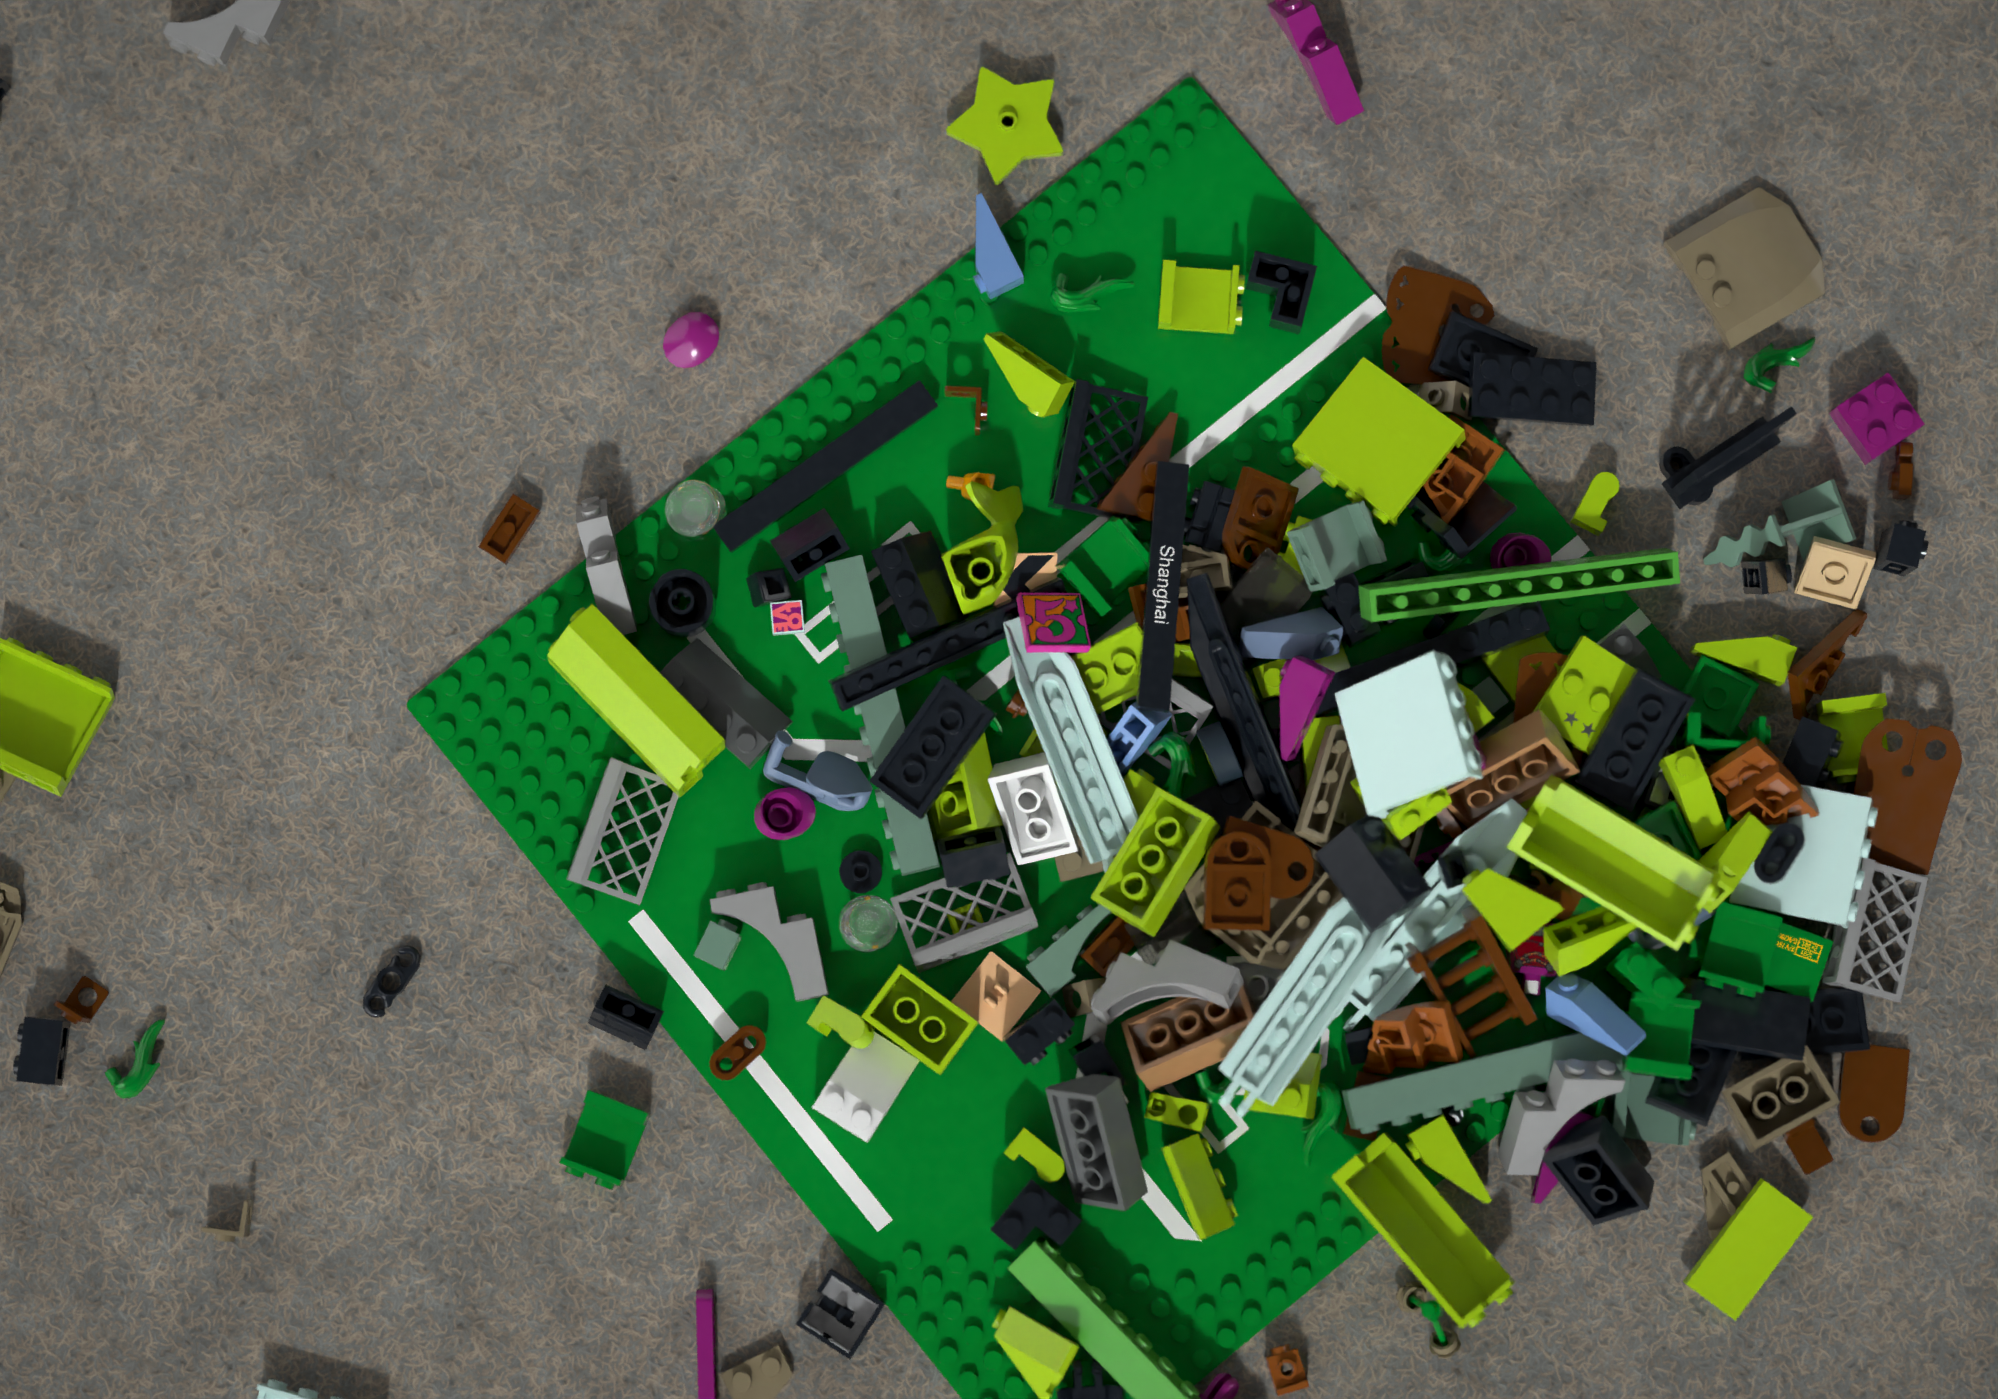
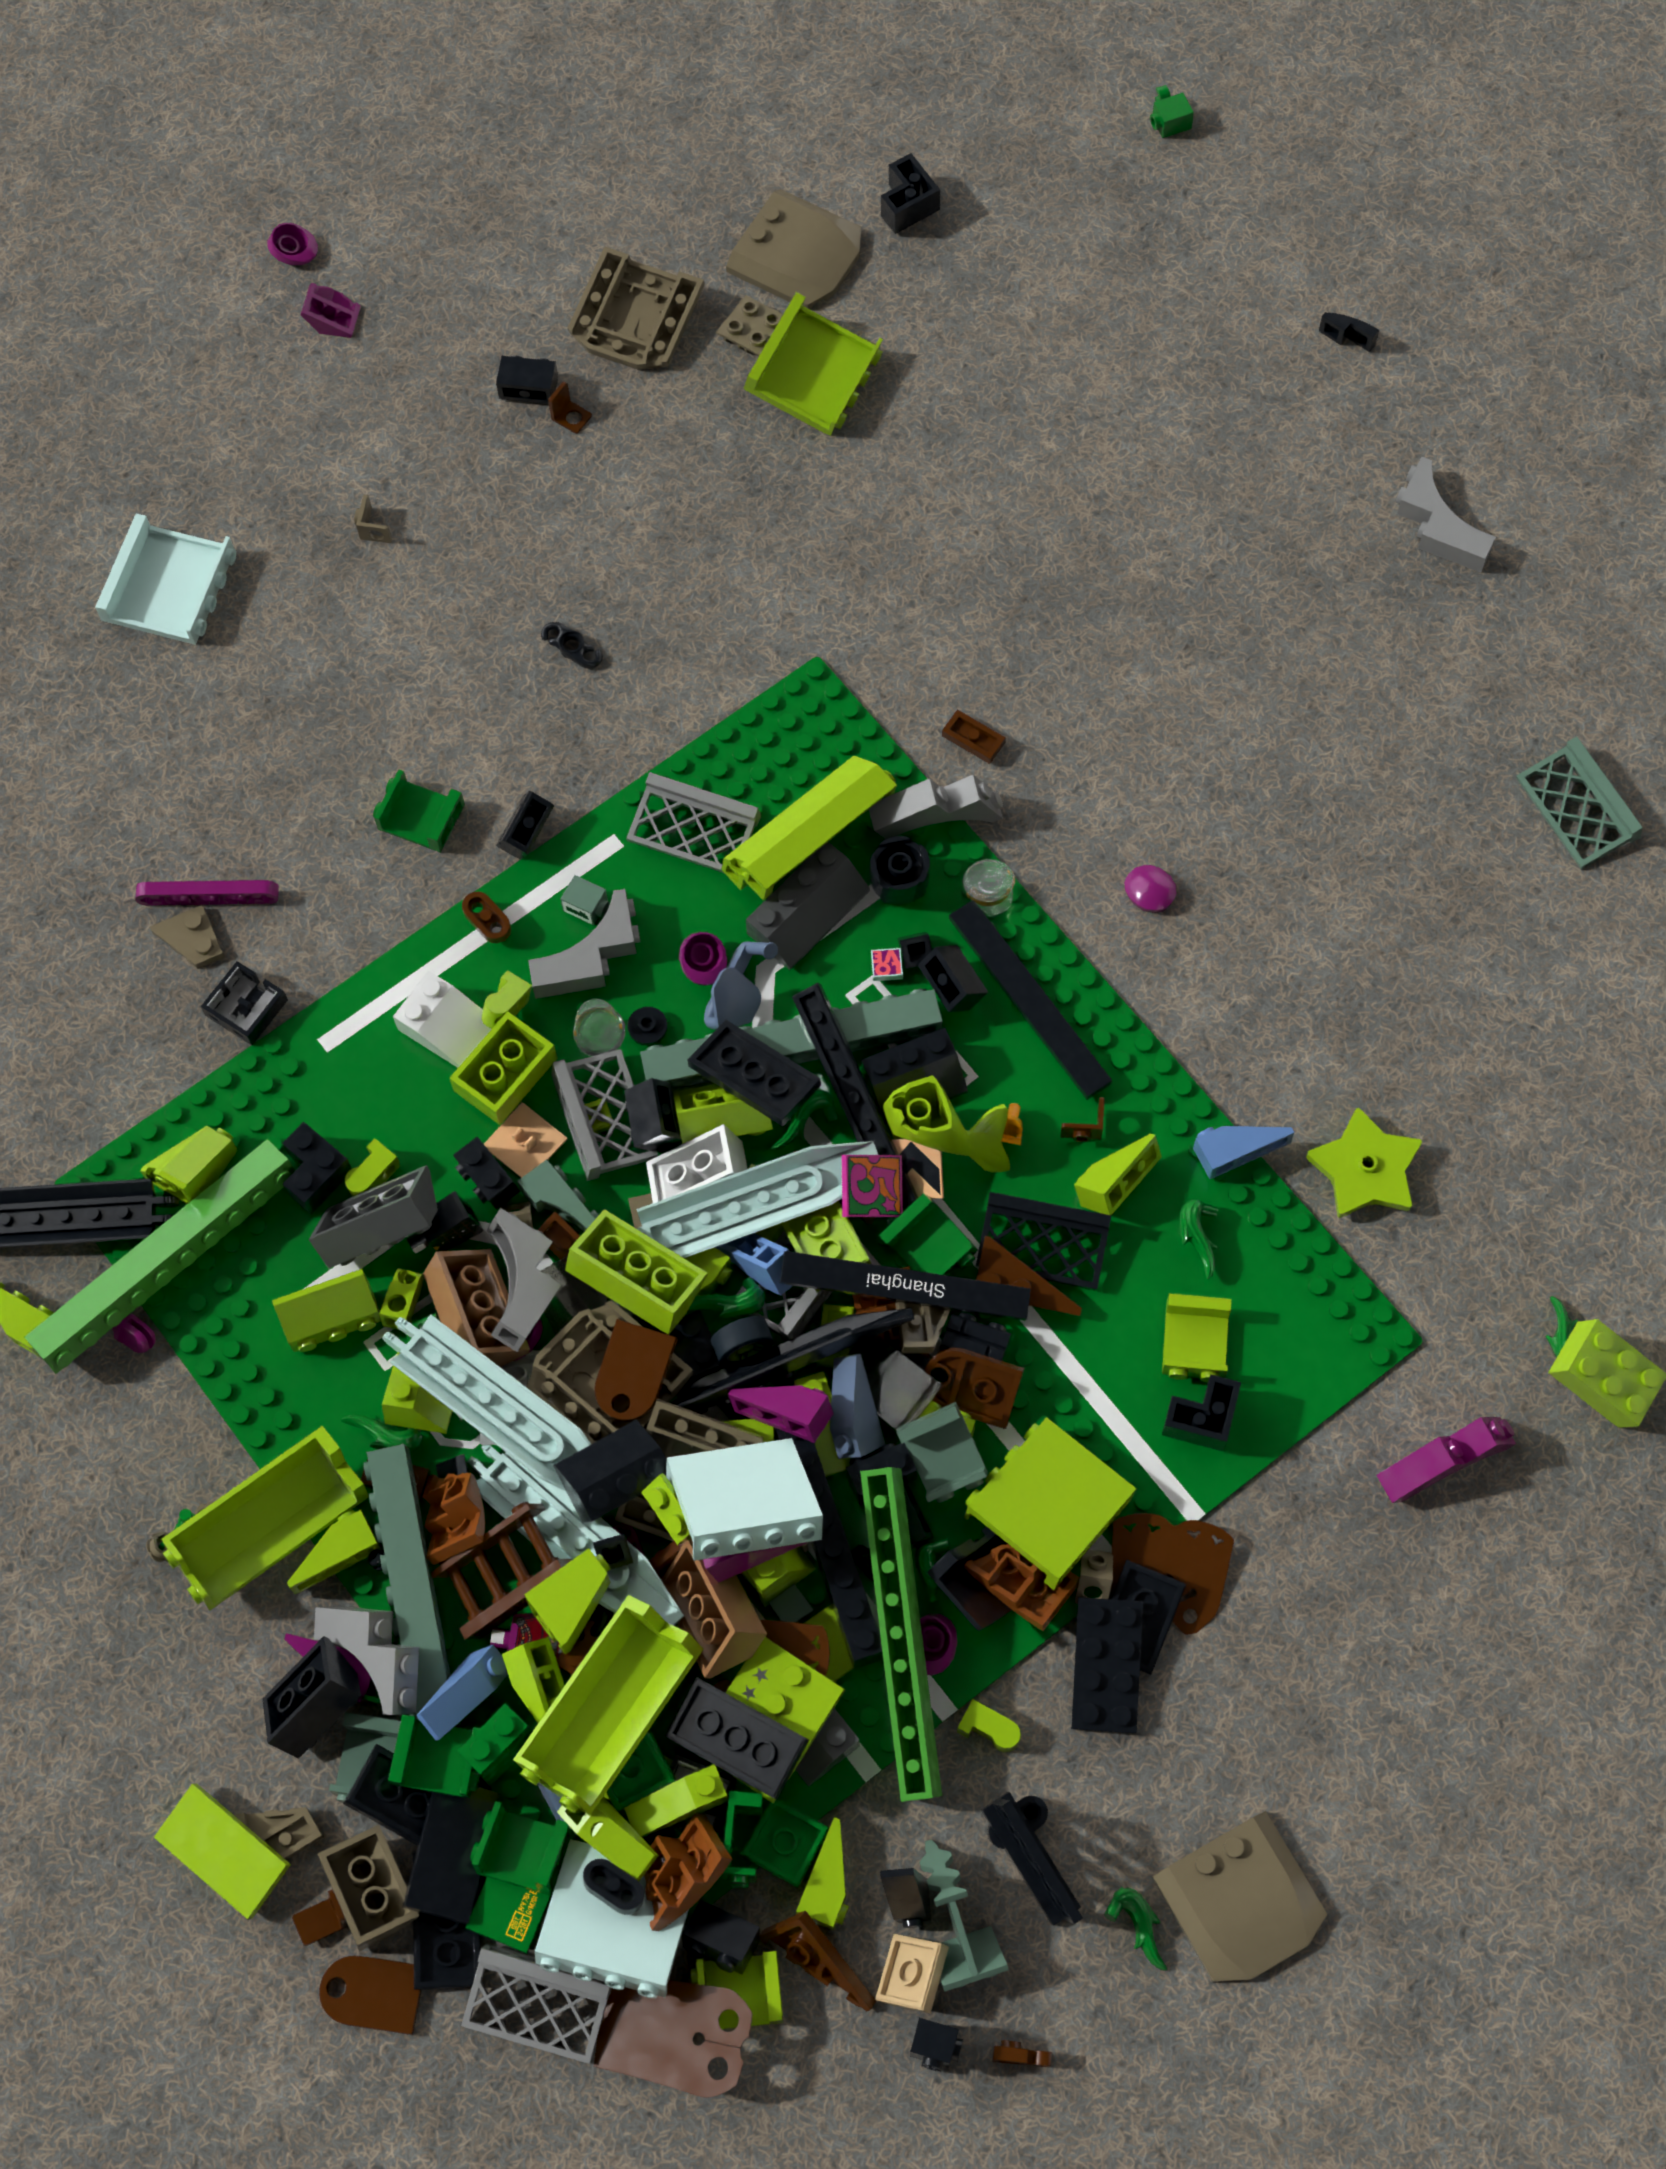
camera: 90 degrees right, 15 degrees down
(142, 1069) = (507, 455): green piece -> none
(1237, 888) = (605, 1342): reddish brown tile -> none
(1286, 1383) = (146, 1407): dark orange brick -> none
(1876, 418) = (1077, 2028): magenta brick -> none

